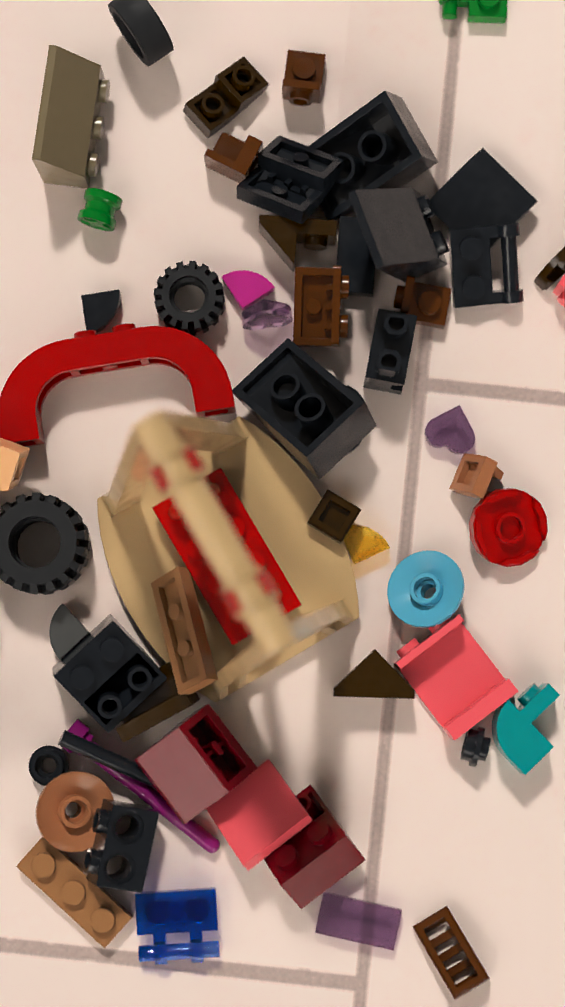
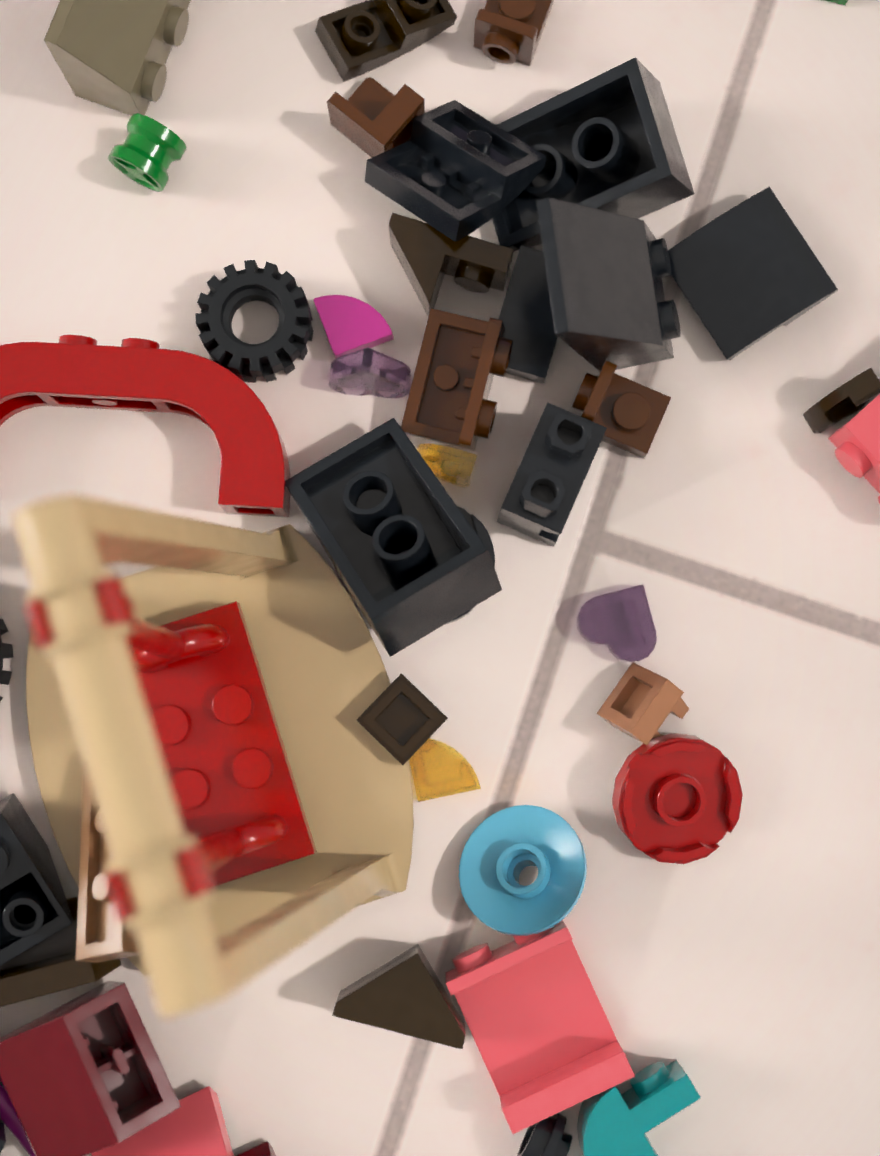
camera: 10 degrees right, 0 degrees up
(100, 308) = (113, 308): black tile -> none
(327, 357) = (449, 463): none -> clear yellow tile
(472, 265) = (712, 371): black plate -> none

